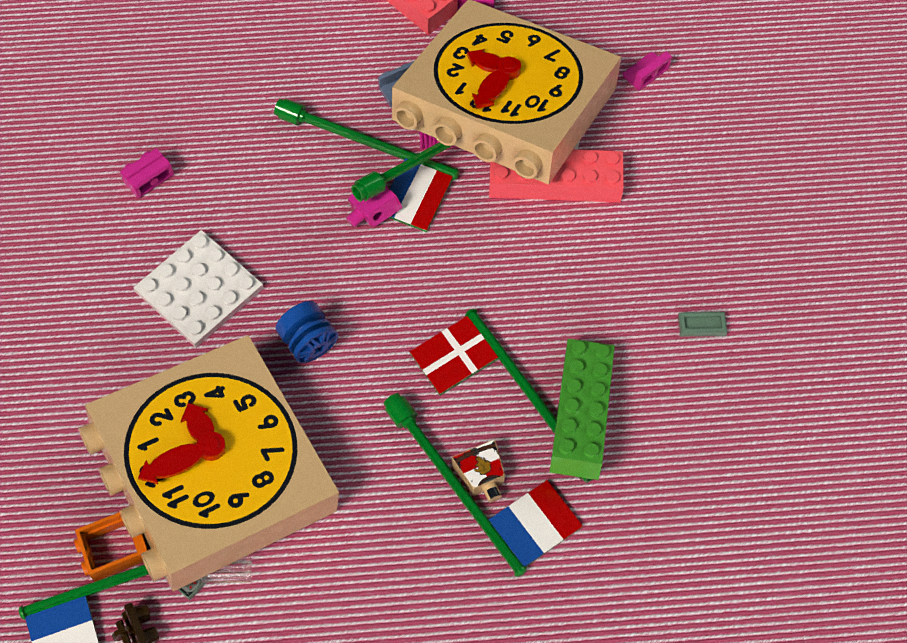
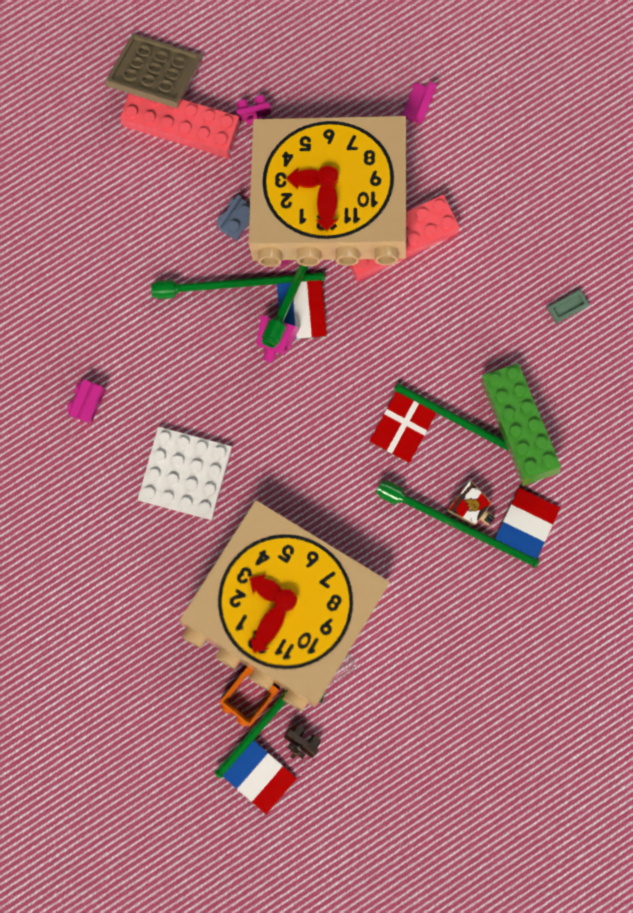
camera: 25 degrees left, 20 degrees up
(306, 331) = (290, 470): blue wheel -> none

